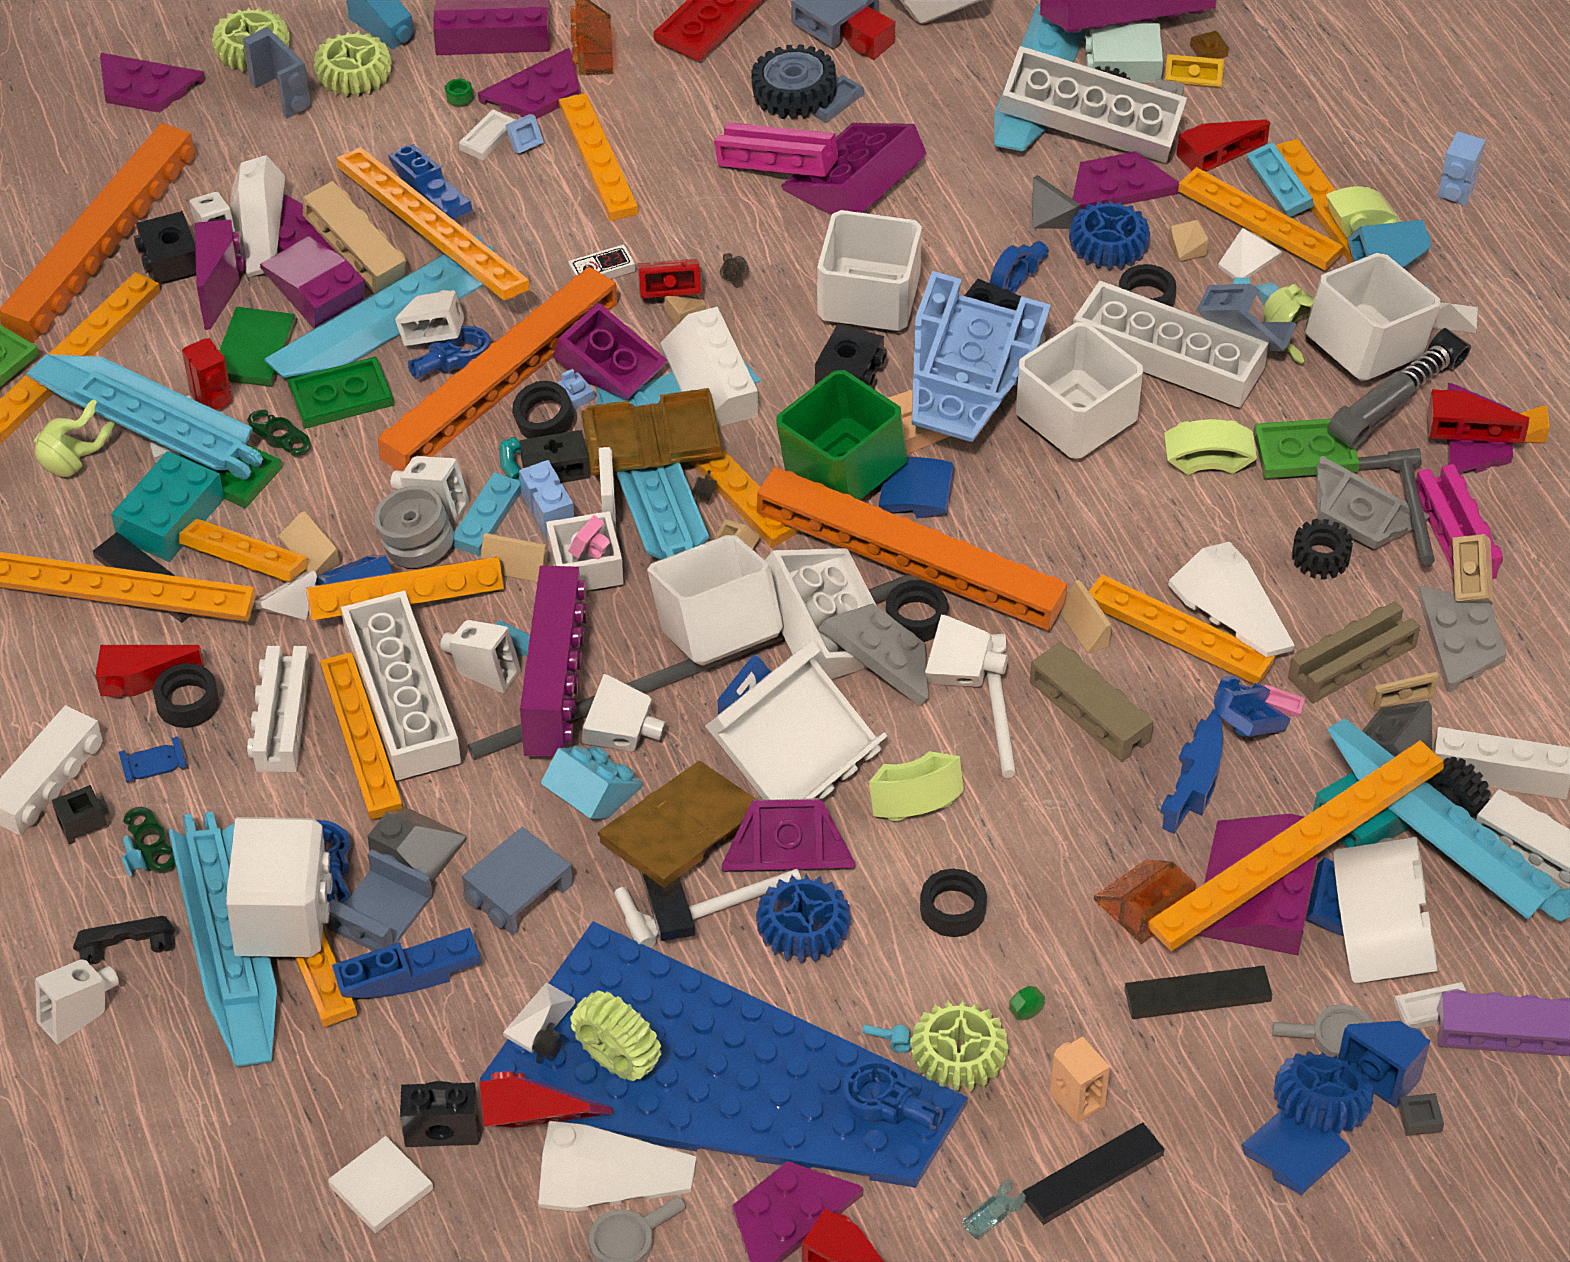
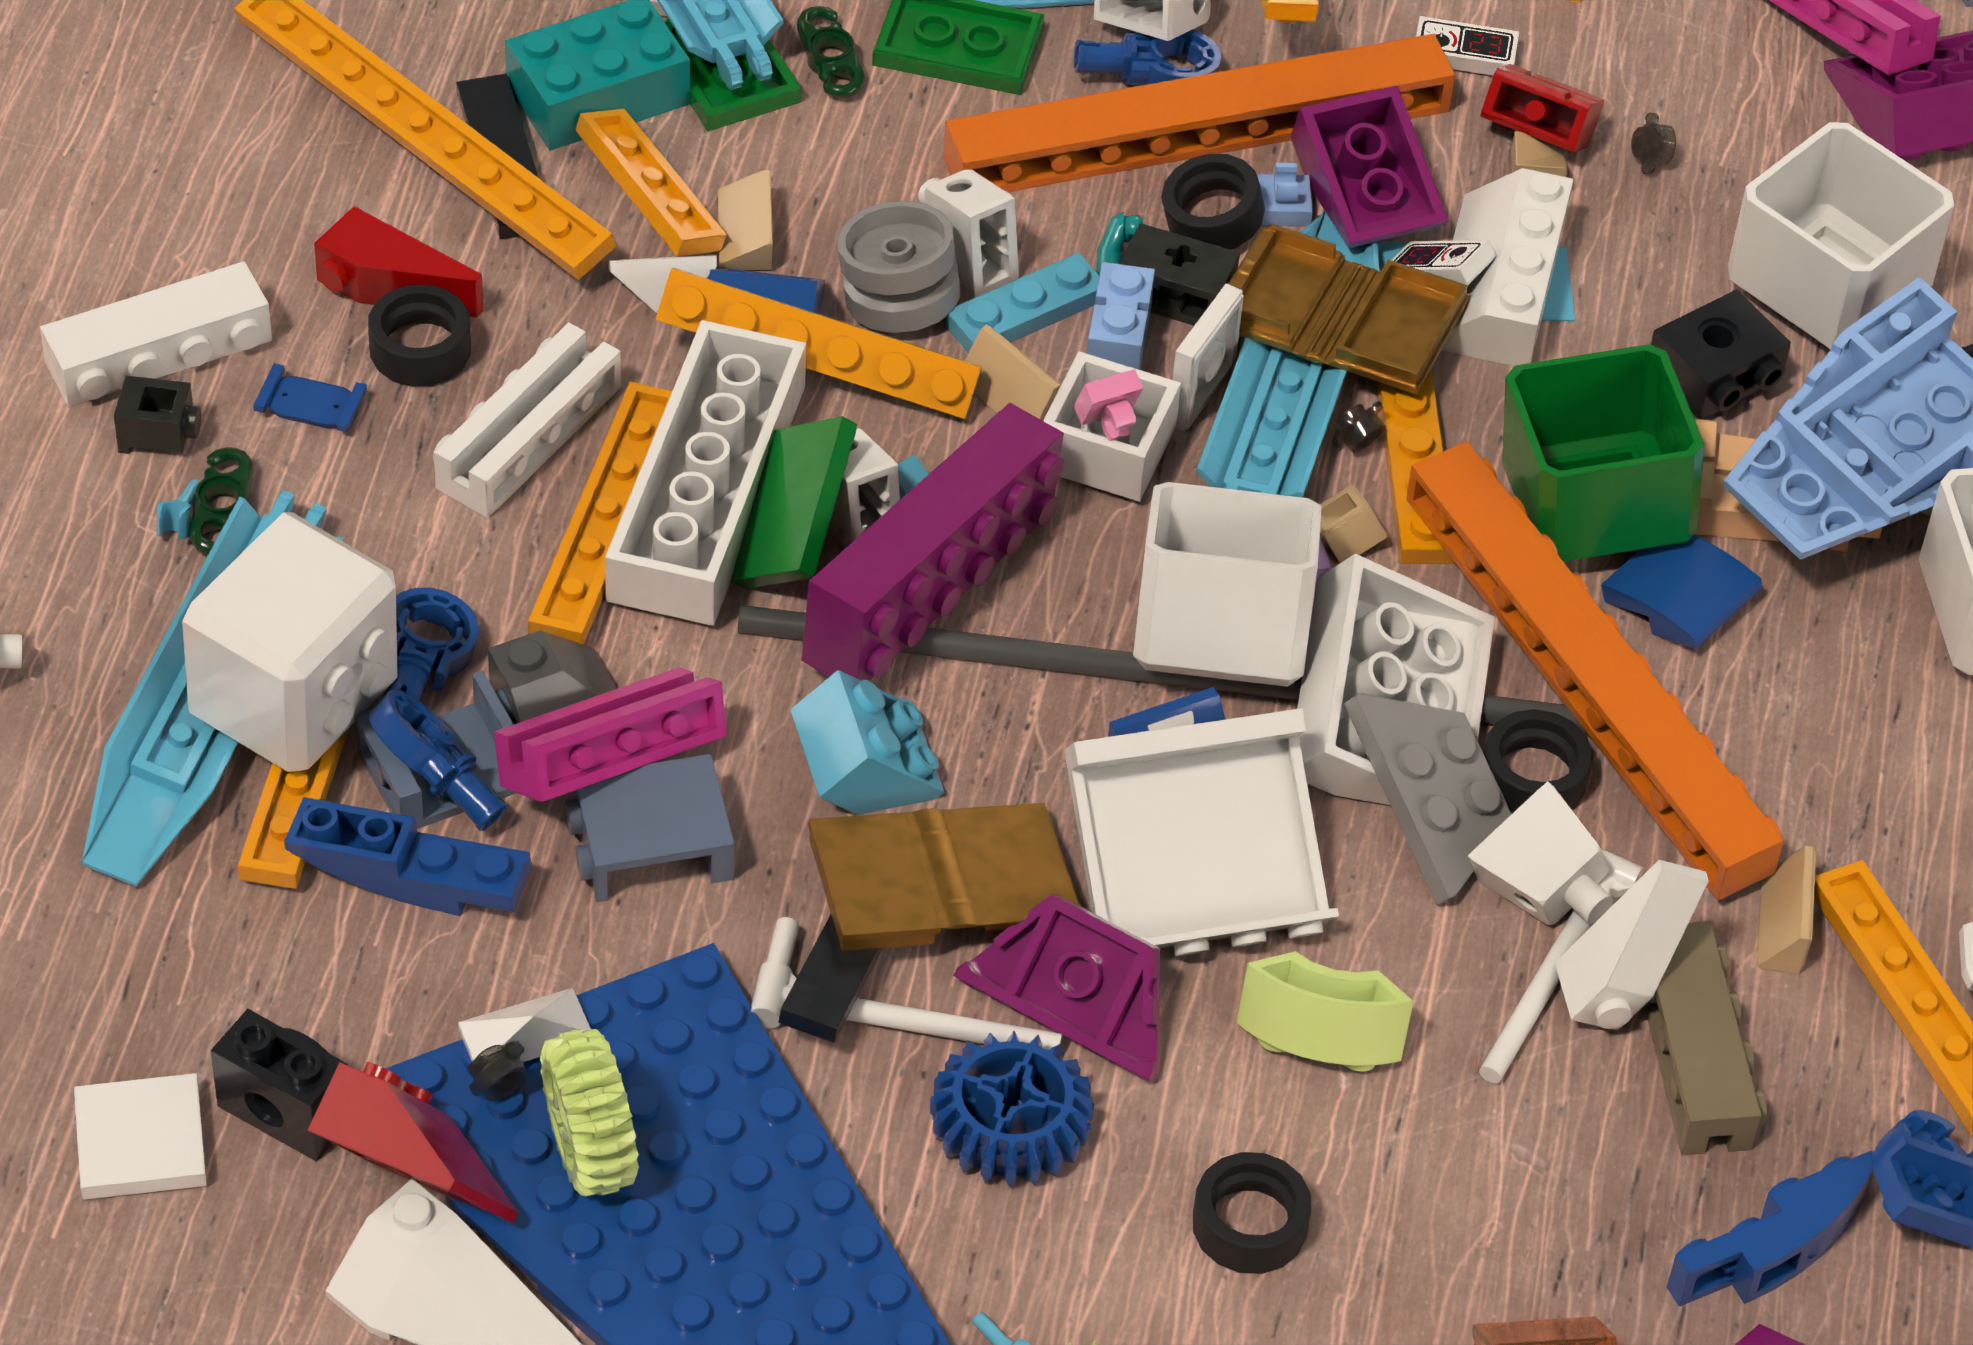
camera: 30 degrees right, 0 degrees up
(156, 929) = (33, 590): black piece -> none
(381, 906) = (434, 752): none -> blue pin
(465, 674) = (794, 503): none -> green tile
(465, 845) = (609, 734): none -> dark pink brick
(620, 717) = (974, 679): white torso -> none
(686, 379) = (1449, 259): none -> tile
(1037, 677) = (1630, 946): none -> white slope

